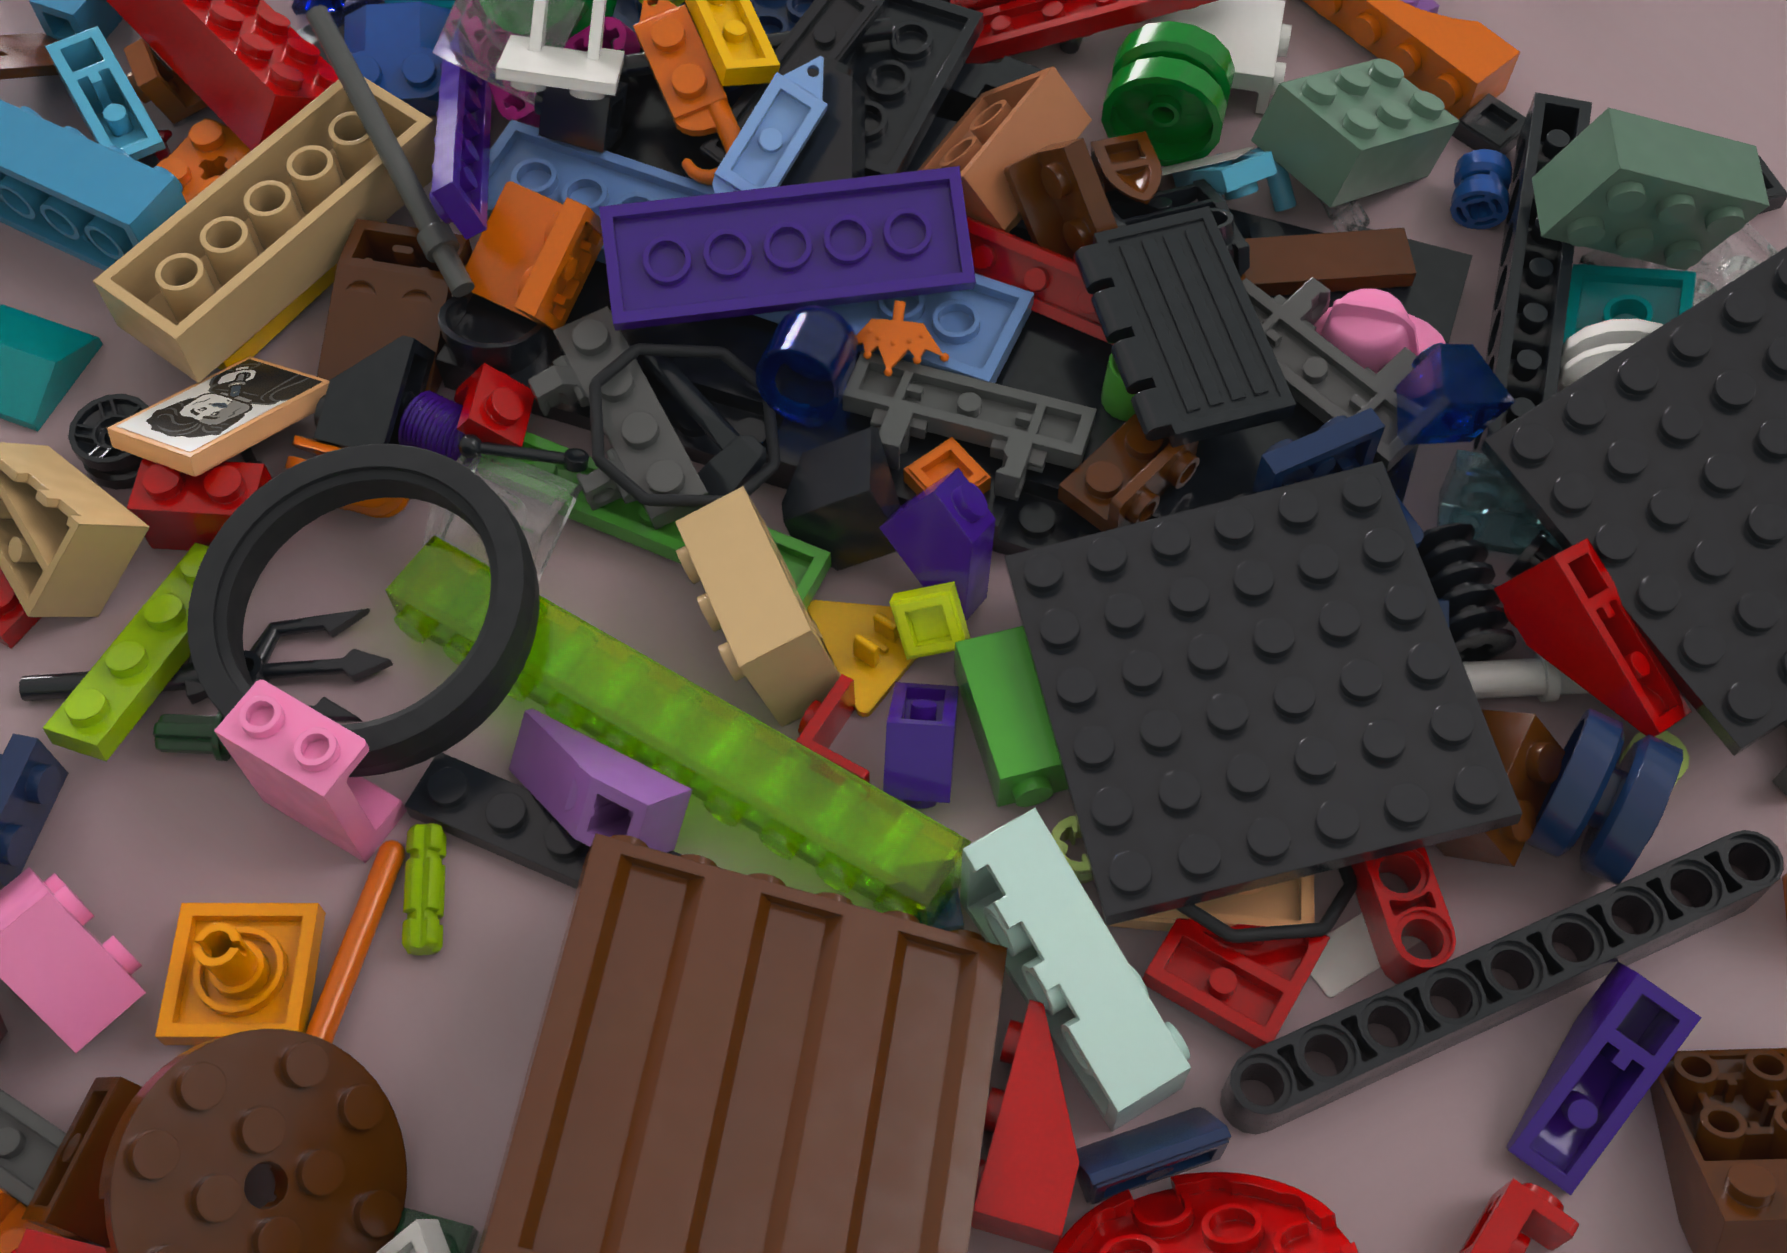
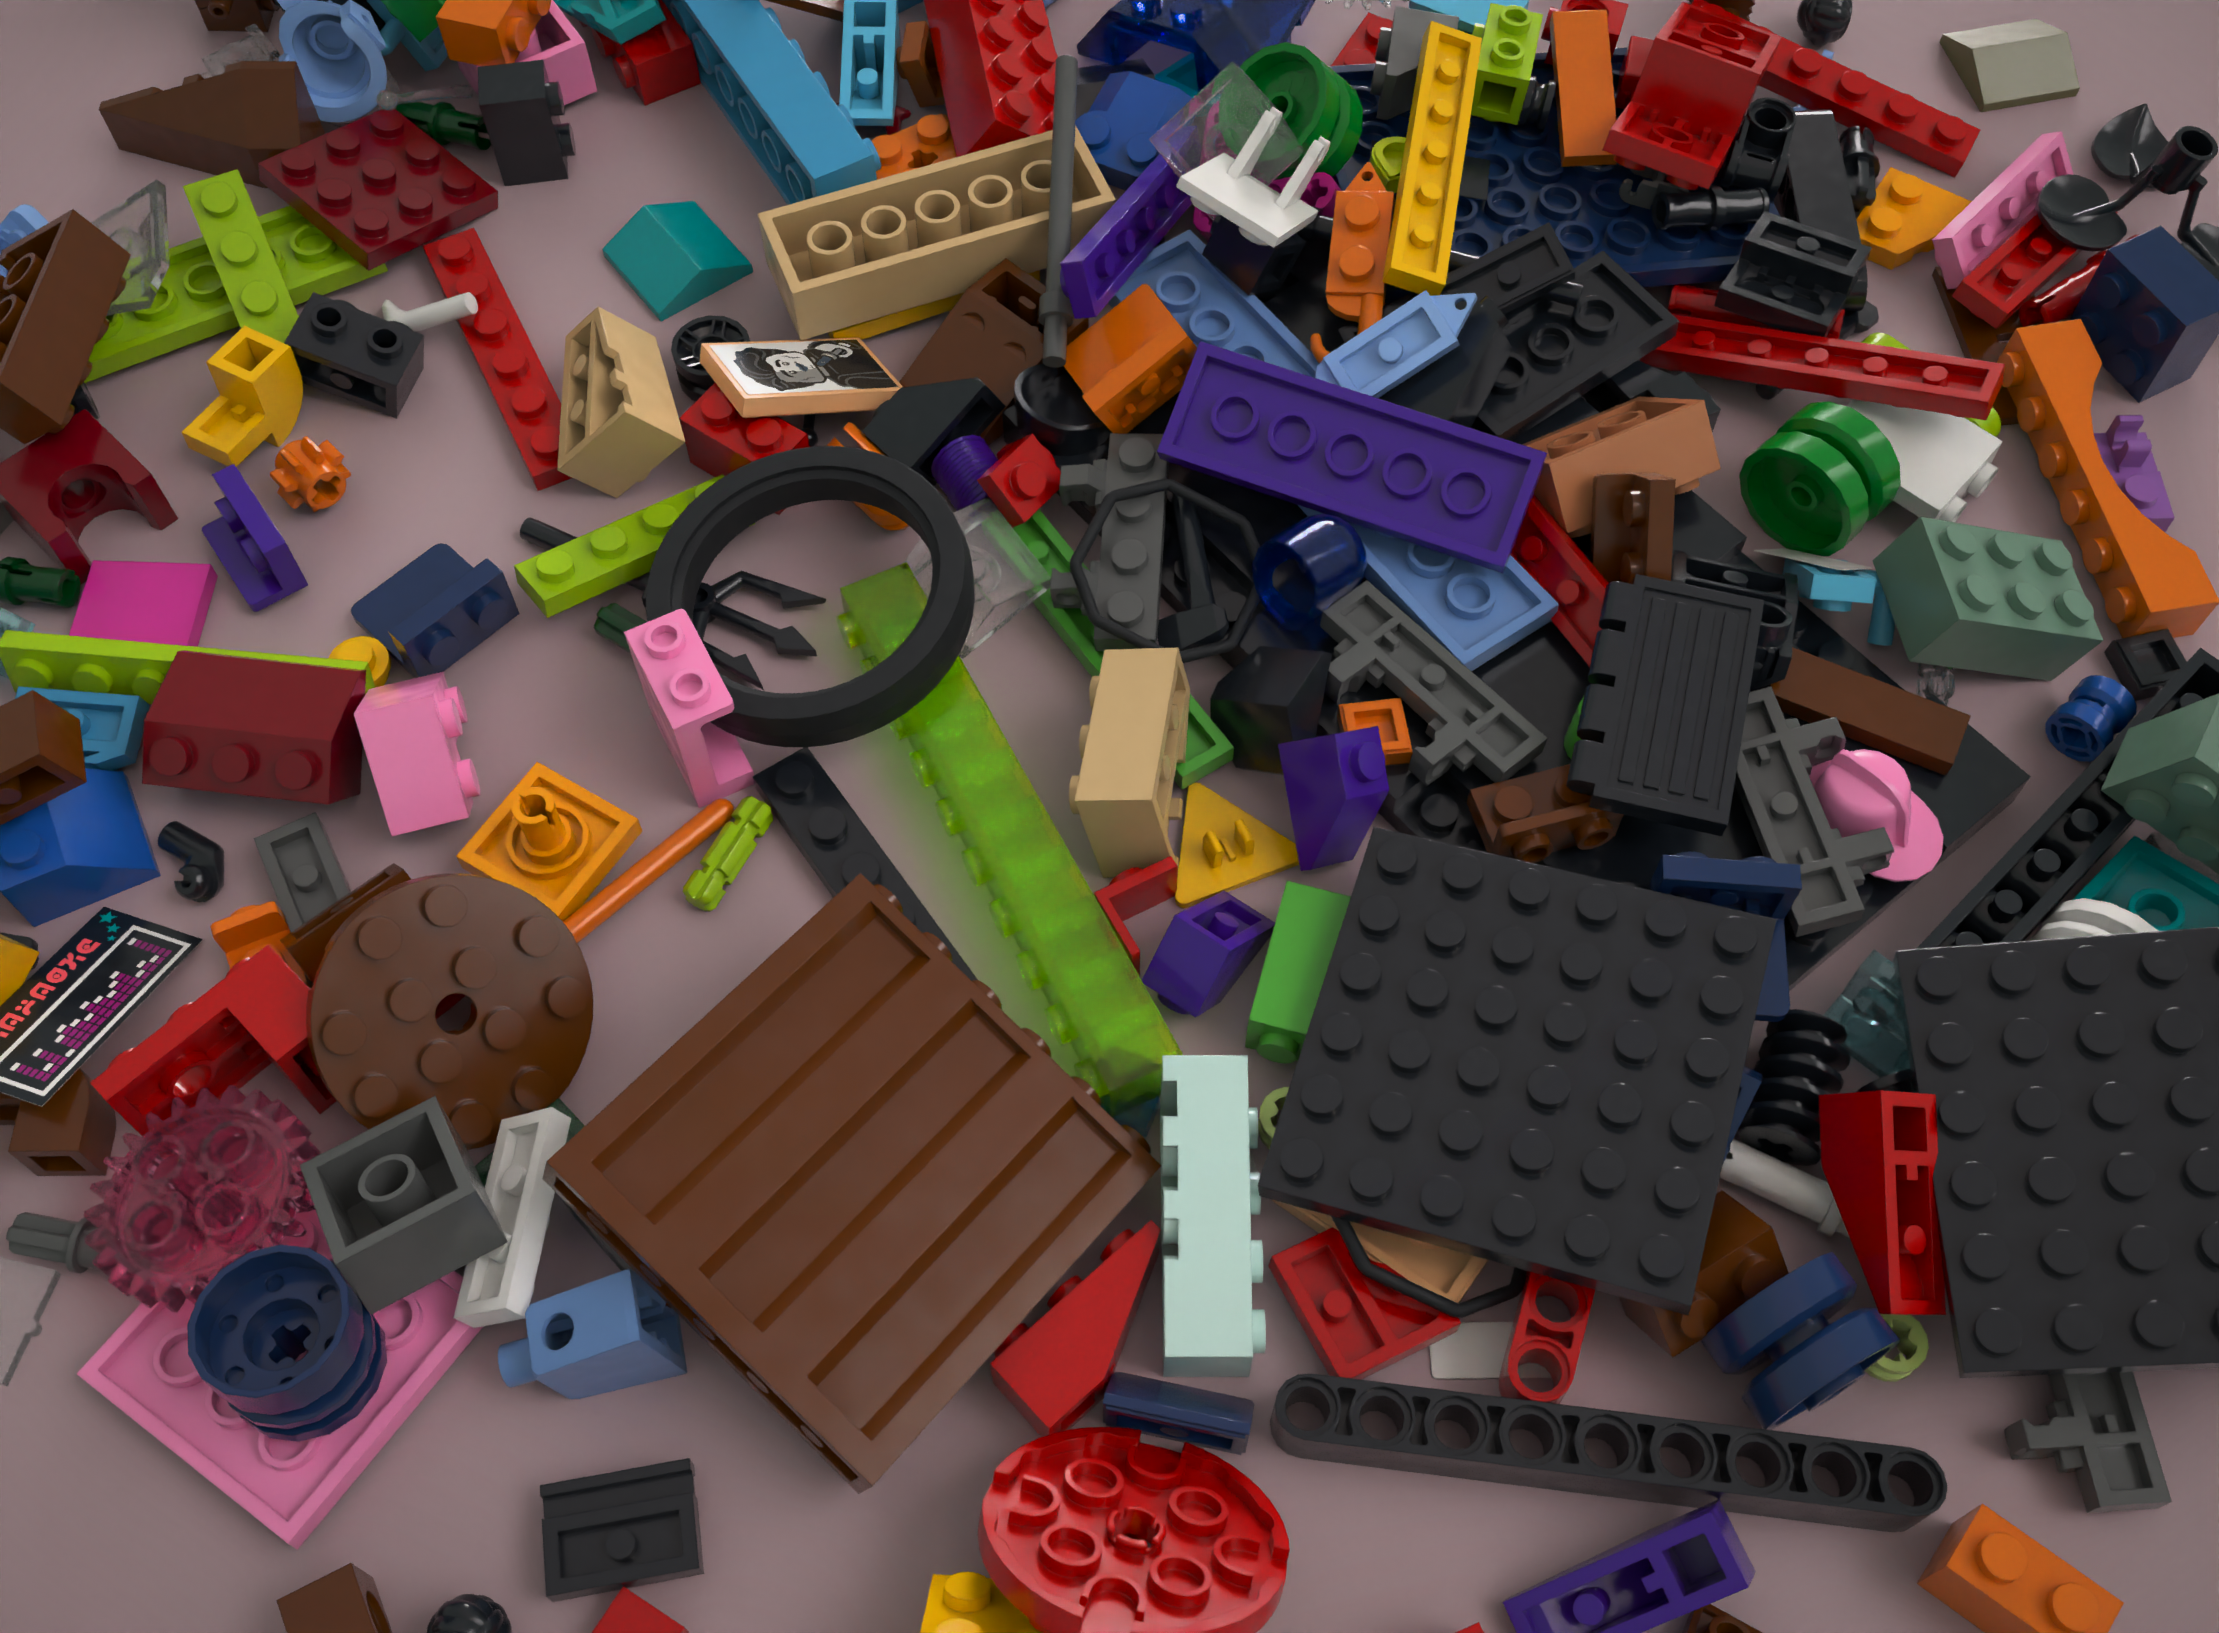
camera: 30 degrees right, 0 degrees up
(573, 459) = (982, 501): black hinge -> none
(595, 786) = (910, 847): medium lavender slope -> none
(897, 338) = (1401, 584): orange piece -> none
(929, 619) = (1279, 849): neon yellow tile -> none
(1128, 166) = (1729, 529): reddish brown plate -> none
(1449, 396) = (1890, 895): clear blue slope -> none

